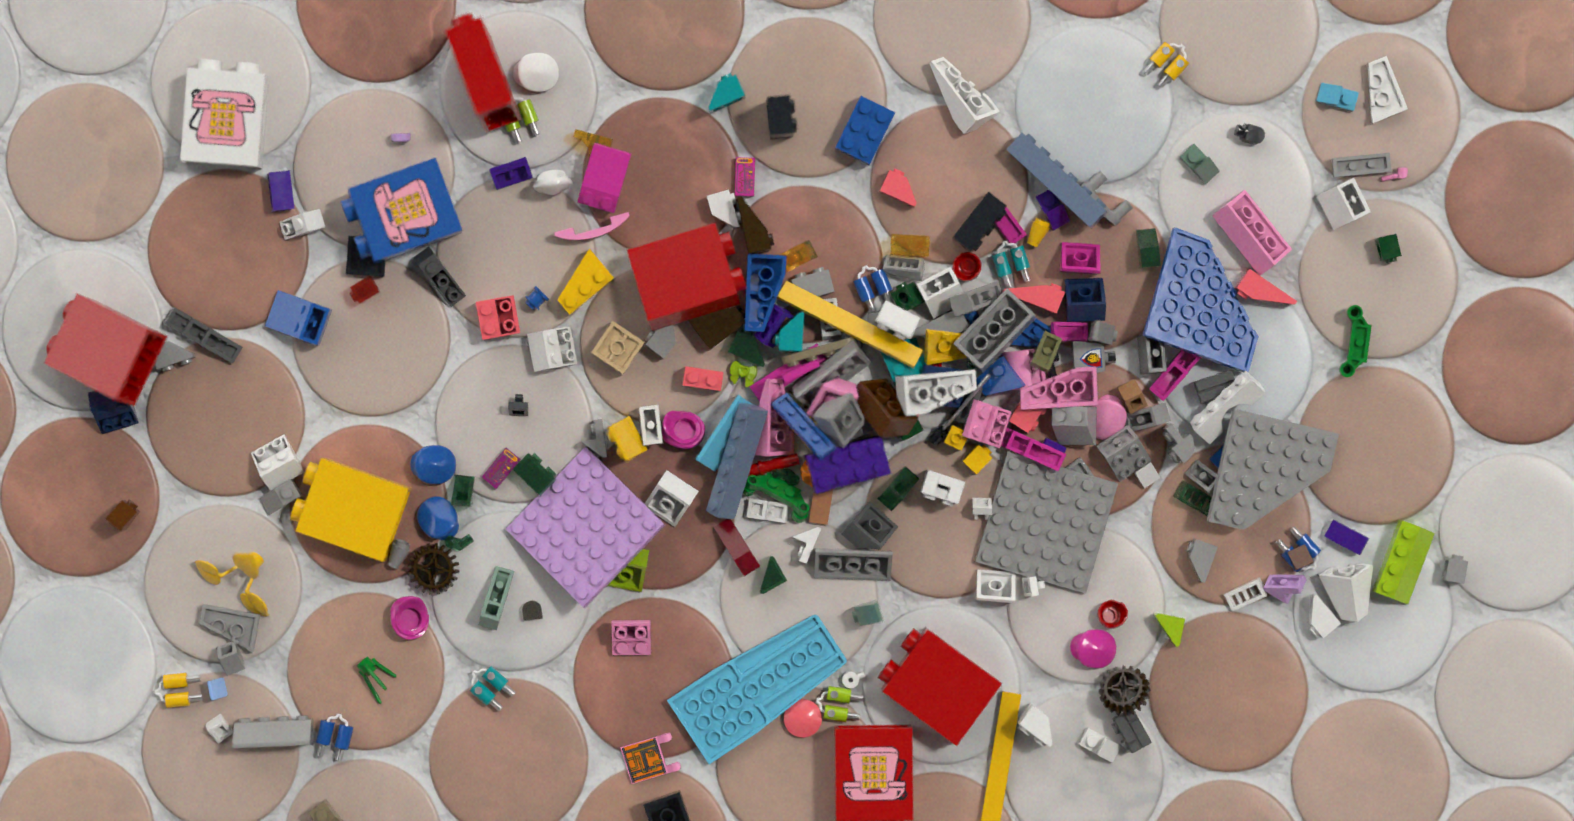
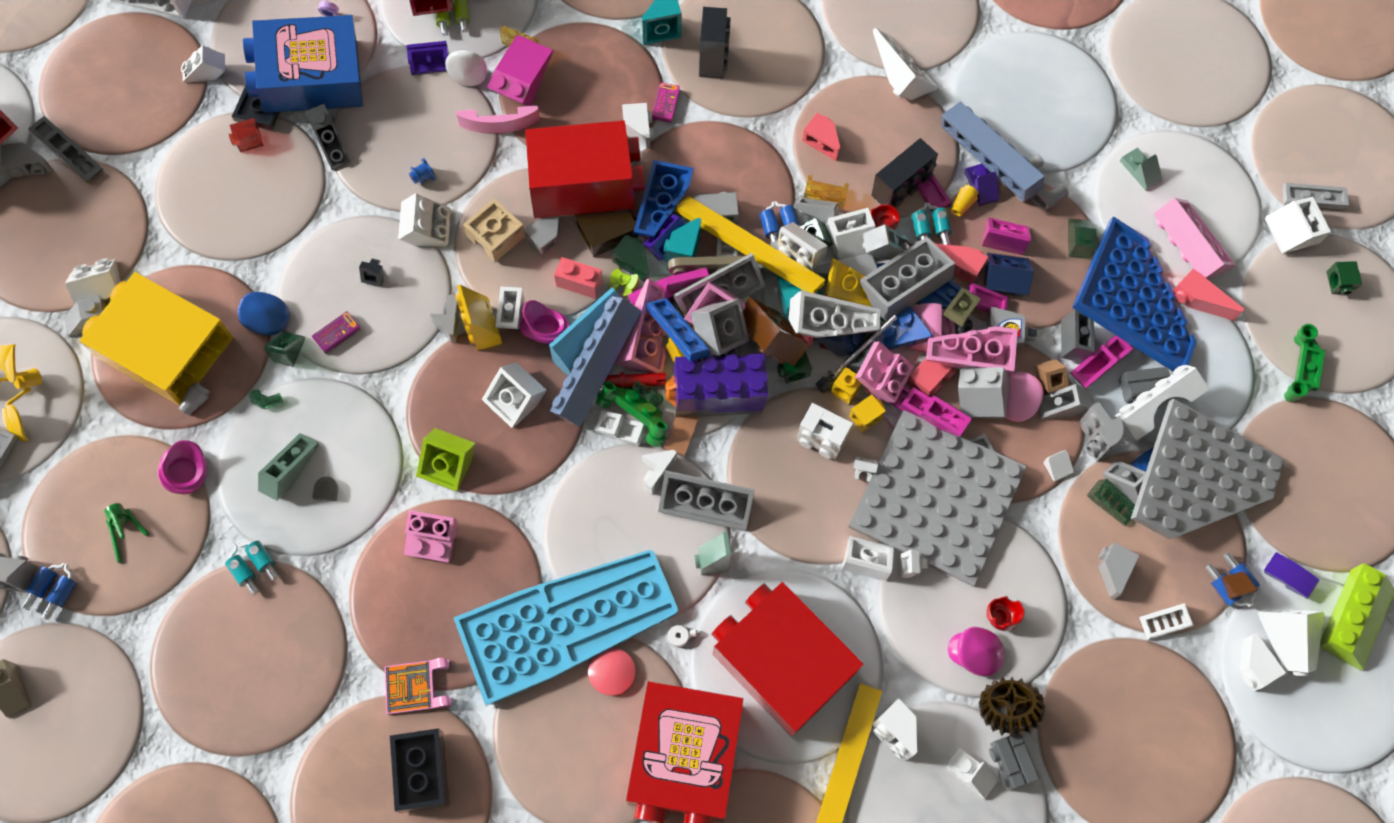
camera: 15 degrees right, 20 degrees down
(280, 191) = (191, 33): dark purple hinge -> none
(298, 318) = (171, 149): slope -> none
(431, 585) = (222, 410): dark brown gear -> none
(438, 518) = (250, 371): blue piece -> none
(498, 317) = (373, 181): coral slope -> none
(535, 473) = (370, 342): clear green brick -> none
(585, 282) = (475, 166): yellow wedge -> none
(585, 527) = (408, 403): lavender plate -> none
(737, 546) = (577, 461): dark red slope -> none
(755, 232) = (666, 138): dark brown slope -> none
(773, 576) = (610, 499): clear green slope -> none
(799, 255) = (706, 178): clear yellow arch -> none
(840, 695) = (662, 651): lime piece -> none
(865, 130) = (797, 78): blue brick -> none
(870, 528) = (731, 464): dark grey slope -> none
(898, 488) = (771, 429): clear green slope -> none
(1102, 333) = (1026, 299): light grey slope -> none
(1124, 453) = (1037, 435): light grey bracket -> none
(1161, 56) = (1121, 79): yellow piece -> none
(1172, 626) = (1074, 641): lime slope -> none
(1250, 133) = (1197, 148): black arm -> none
(1284, 586) = (1213, 616): lavender slope -> none
(1337, 96) = (1289, 131): medium azure slope -> none
(1384, 91) = (1340, 133): white wing -> none
(1401, 174) = (1357, 213): bright pink hand -> none

